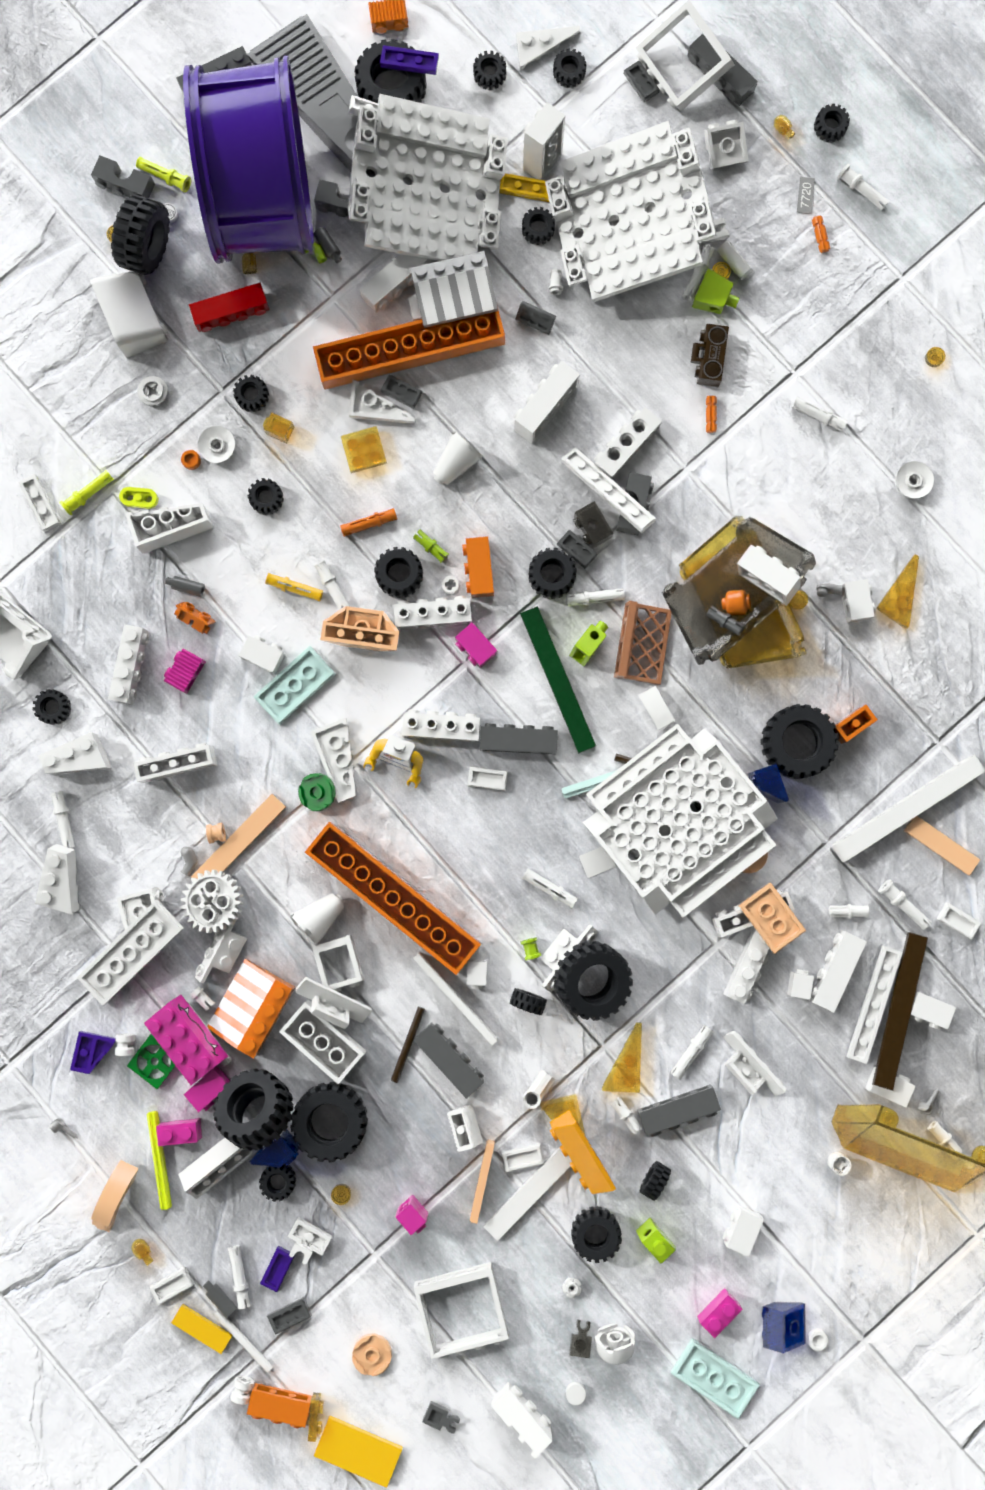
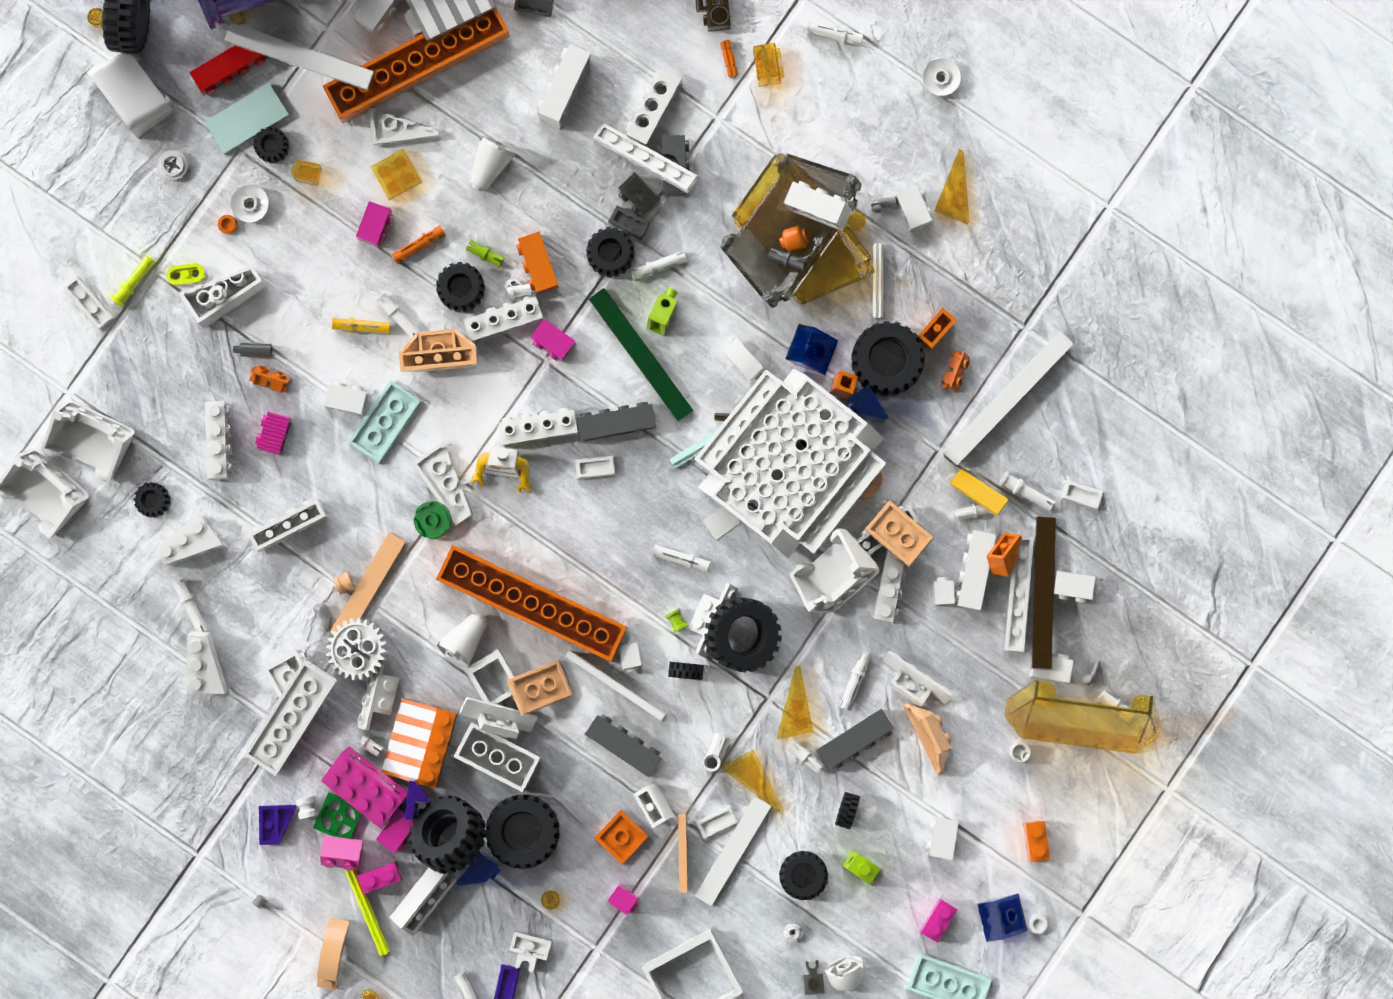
camera: 20 degrees left, 0 degrees up
(147, 1099) = (341, 853): none -> brick
(161, 528) = (217, 299): none -> white plate
(229, 363) = (246, 118): none -> light aqua tile
(231, 1062) = (414, 793): none -> dark purple slope
(257, 488) = (310, 232): black tyre -> none
(277, 1194) = (486, 890): black tyre -> none
(297, 313) = (299, 56): none -> white tile
(331, 492) = (374, 224): none -> dark pink brick
(380, 983) = (539, 687): none -> light nougat tile
(401, 391) = (419, 107): dark grey plate -> none
(407, 1044) = (580, 741): dark brown bar -> none
(425, 1149) = (621, 837): none -> orange tile
(454, 589) = (518, 291): none -> white pin
(581, 1153) = (771, 801): light orange slope -> none
(628, 635) = (698, 299): nougat fence -> none
(698, 942) = (834, 574): none -> white windscreen
(726, 714) = (811, 349): none -> clear blue slope
(747, 428) = (767, 64): none -> clear yellow brick
(749, 756) = (843, 384): none -> orange brick
(755, 1125) = (930, 735): none -> light nougat wedge
(806, 662) = (878, 264): none -> white axle
(836, 1257) = (1036, 841): none -> orange brick
(858, 894) = (979, 492): none -> yellow tile
(866, 763) = (959, 363): none -> orange hinge
(870, 963) = (1004, 554): none -> orange slope
(942, 845) = (1049, 425): light nougat tile -> none

